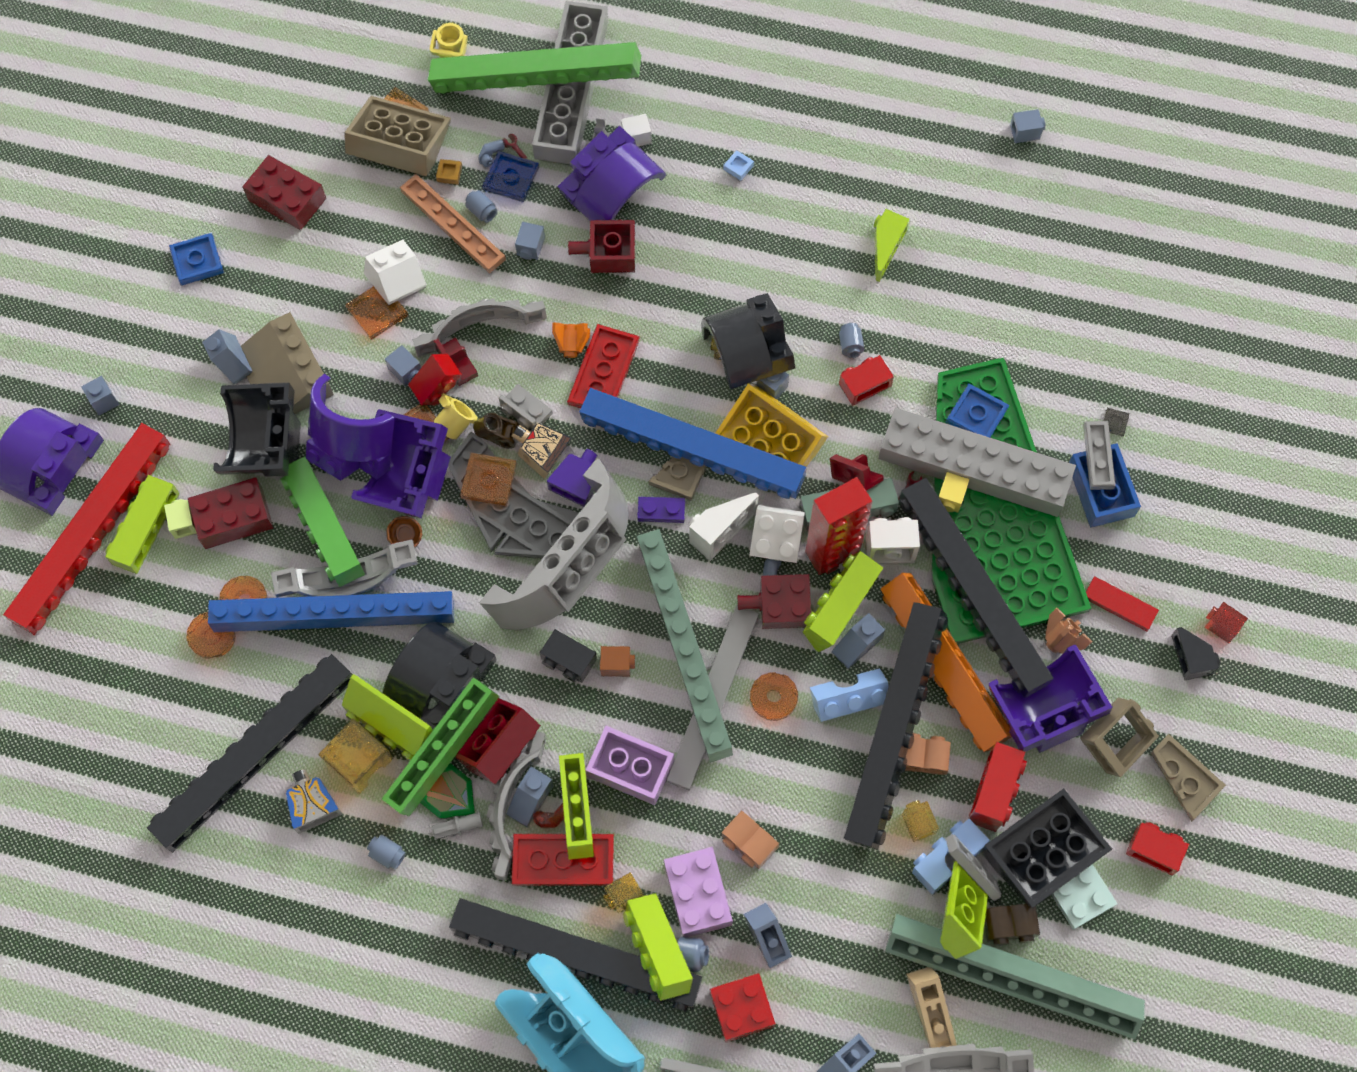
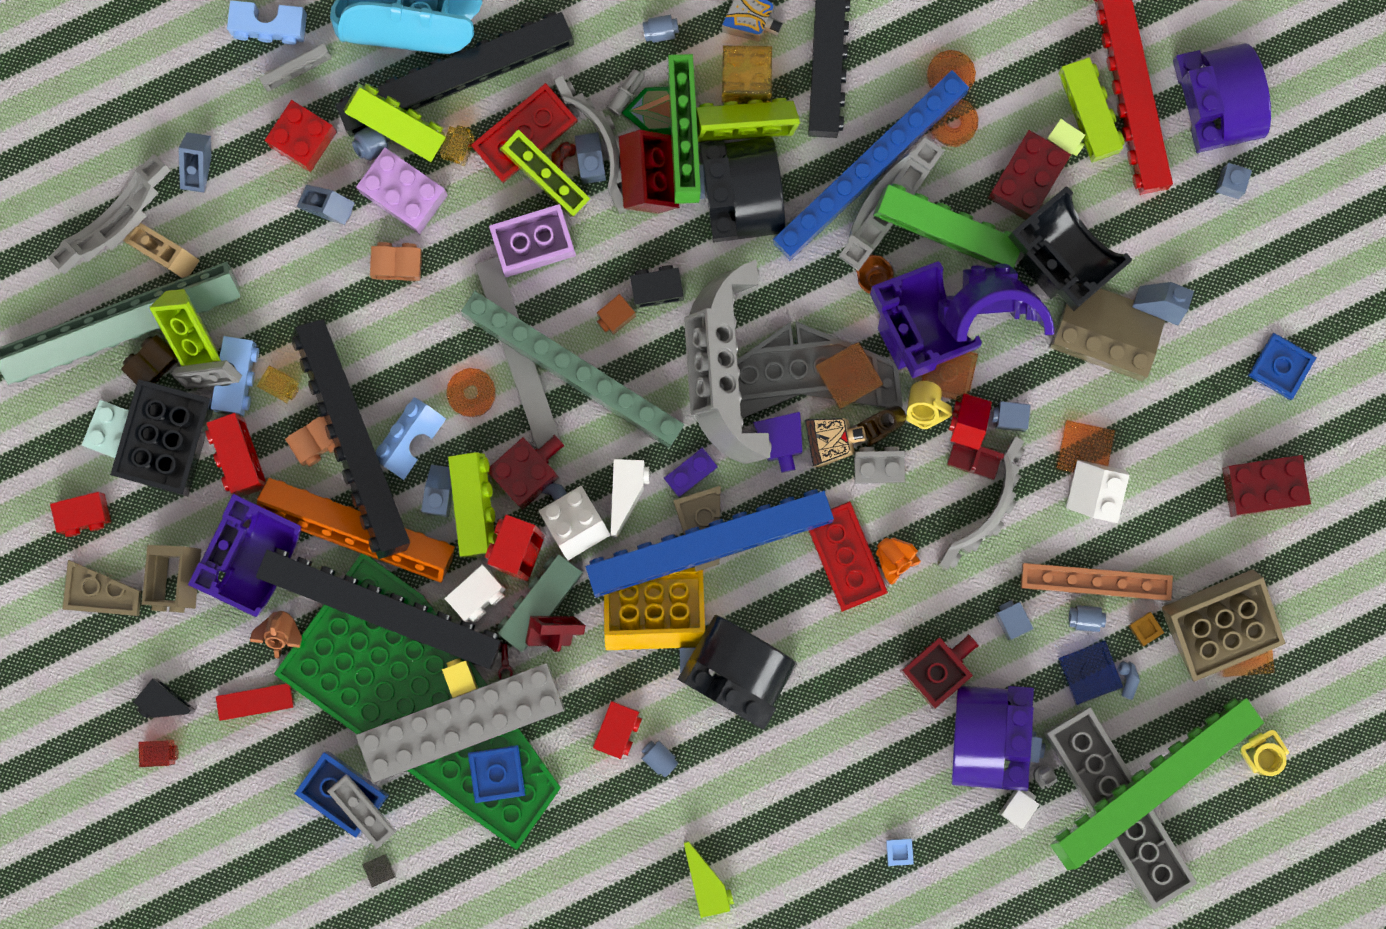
camera: 140 degrees right, 15 degrees up
(513, 145) = (1116, 704): dark red hand -> none

